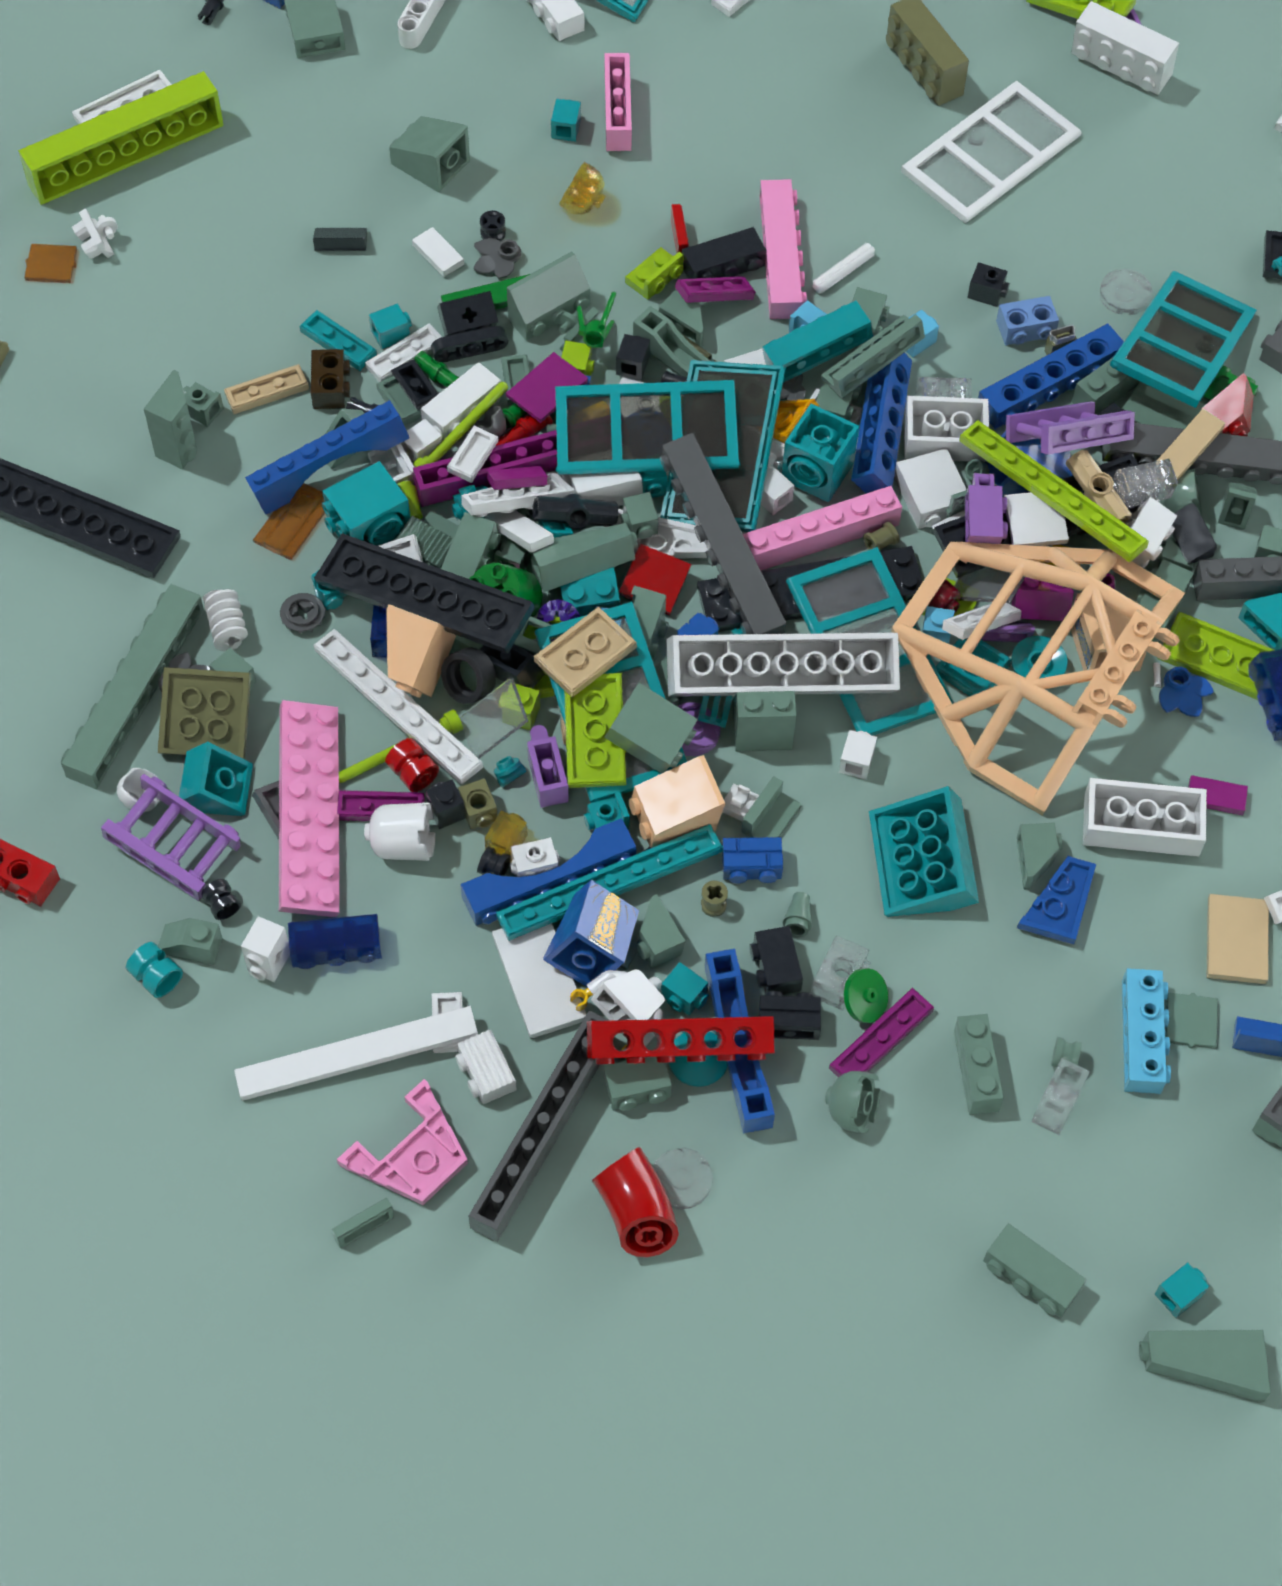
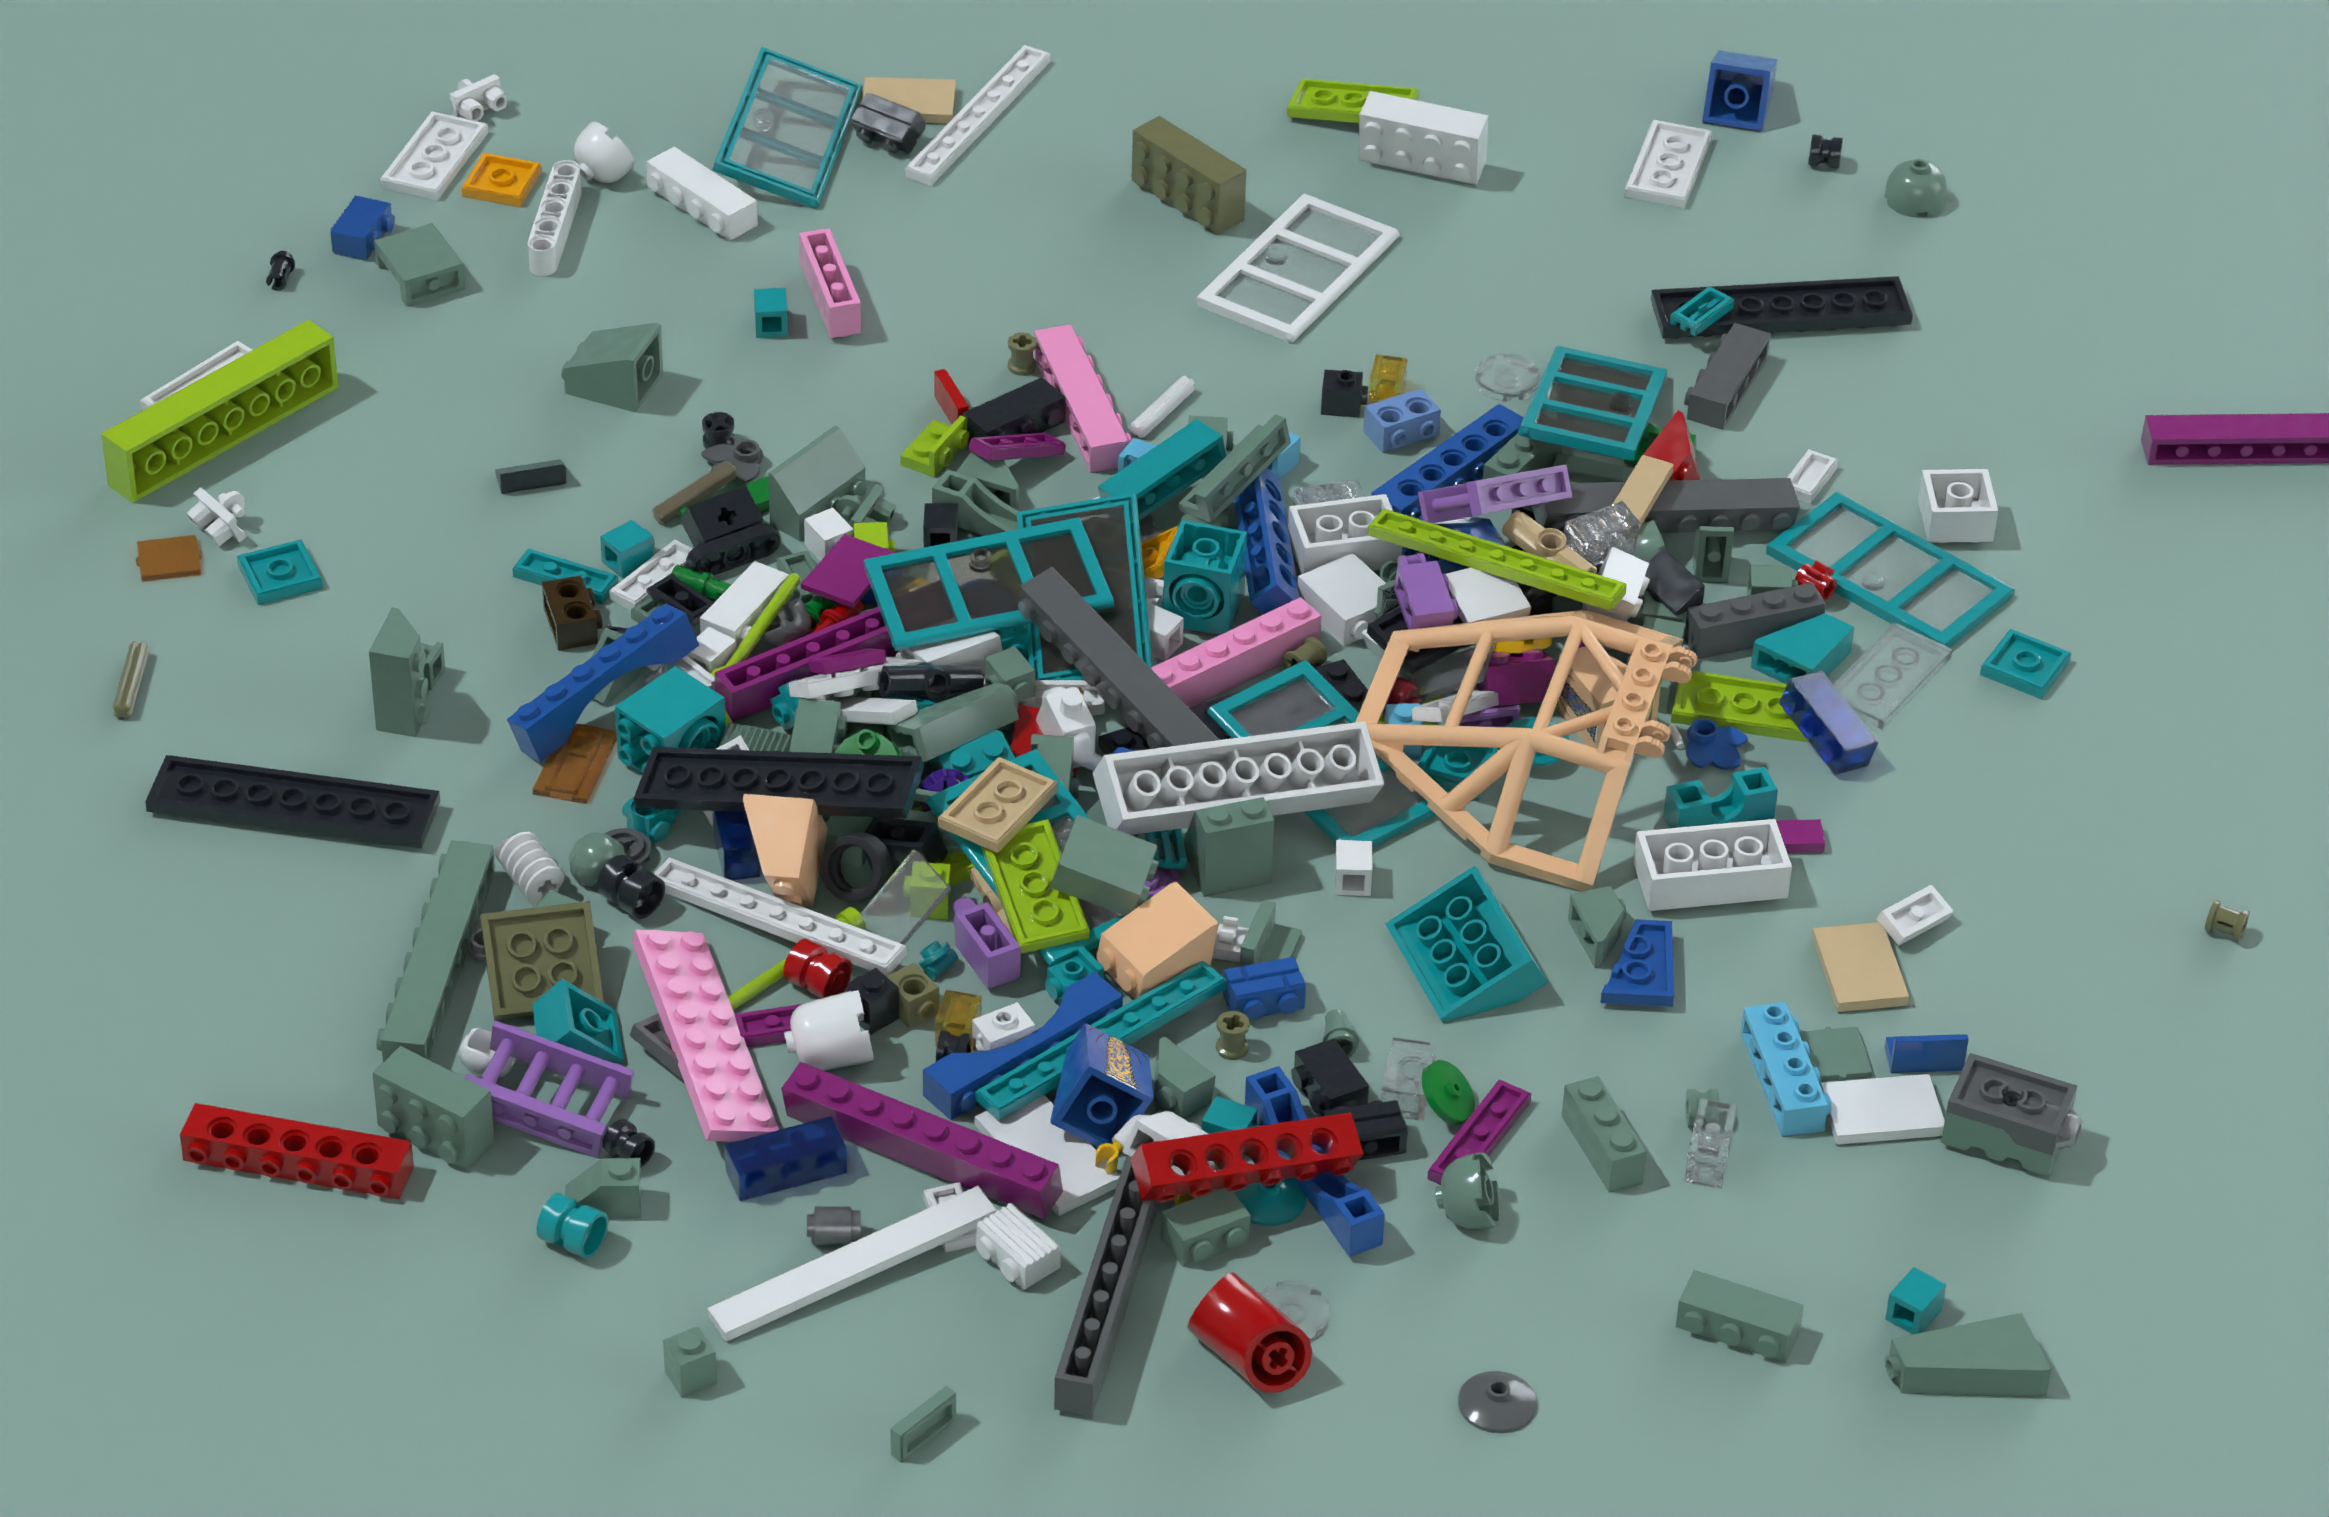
camera: 15 degrees left, 20 degrees down
(80, 838) = (433, 1108): none -> sand green brick
(127, 293) = (279, 572): none -> teal tile
(203, 1121) = (690, 1361): none -> sand green brick
(265, 949) = (707, 1174): white brick -> none
(266, 389) = (493, 638): tan tile -> none
(277, 621) = (591, 855): none -> sand green hair
(294, 653) = (631, 886): none -> black wheel
(352, 1013) = (834, 1225): none -> flat silver brick
(419, 1162) = (968, 1356): bright pink wing -> none
(438, 252) = (658, 469): white tile -> none
(442, 951) = (924, 1140): none -> magenta brick
(457, 281) = (695, 492): none -> dark tan axle
(472, 454) = (785, 645): white tile -> none
(545, 341) = (824, 531): none -> white brick
(584, 191) = (821, 376): clear yellow cylinder -> none
(595, 331) = (888, 504): green plant -> none
(670, 576) = (1067, 714): none -> white torso
(747, 201) = (1022, 358): none -> olive bush
(815, 1316) = (1497, 1402): none -> dark grey dish
(1027, 278) = (1387, 377): none -> clear yellow brick
(1059, 338) = (1446, 427): piece -> none
(1147, 760) = (1748, 798): none -> teal arch
(1214, 1086) = (1884, 1109): none -> white tile

